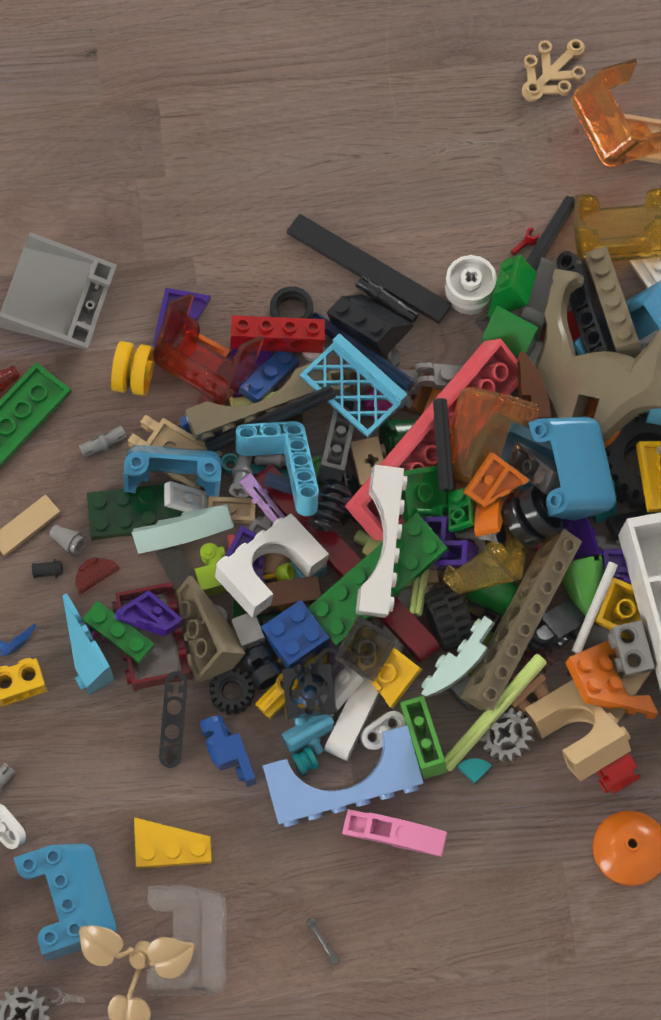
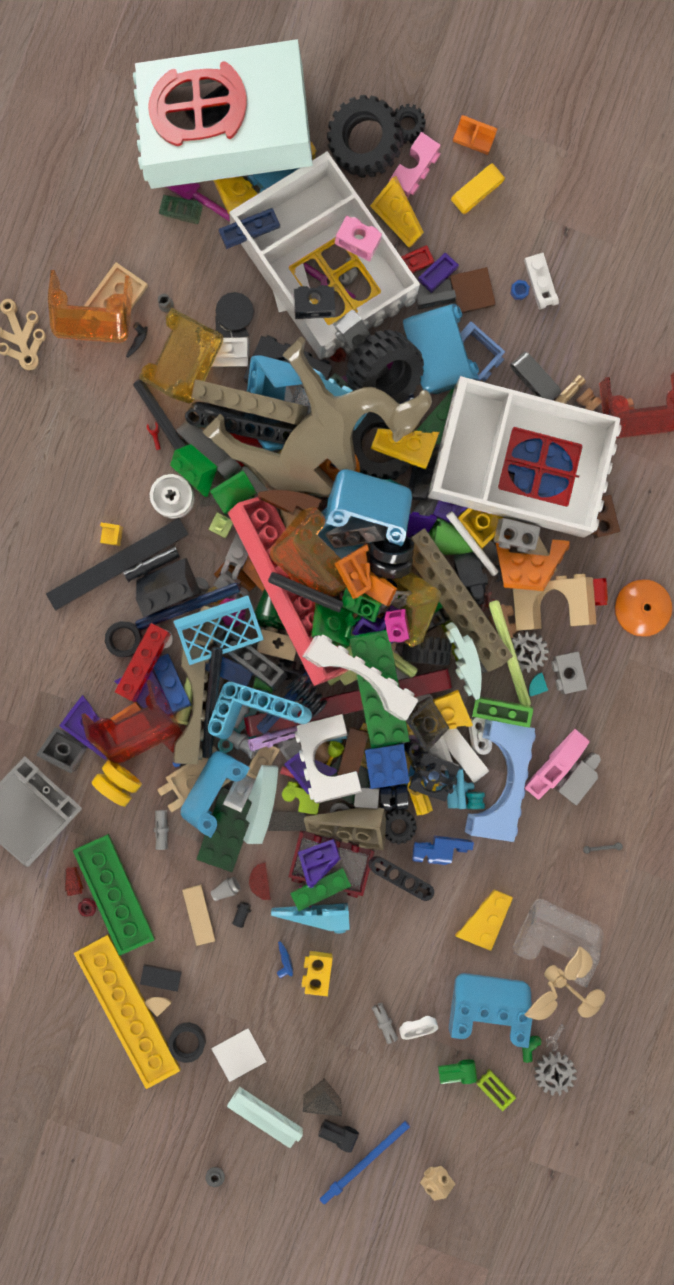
camera: 60 degrees left, 20 degrees up
(41, 969) = (534, 1042): none -> green arm
(140, 304) = (63, 750): none -> dark grey slope
(315, 427) = (232, 671): none -> blue plate
(390, 868) = (579, 778): none -> light grey hinge
(397, 247) = (111, 534): none -> yellow panel
(457, 550) = (397, 625): none -> dark pink brick
(465, 348) = (221, 525): none -> yellowish green tile
(501, 808) = (577, 680): none -> light grey brick
(615, 181) = (139, 339): none -> black bar

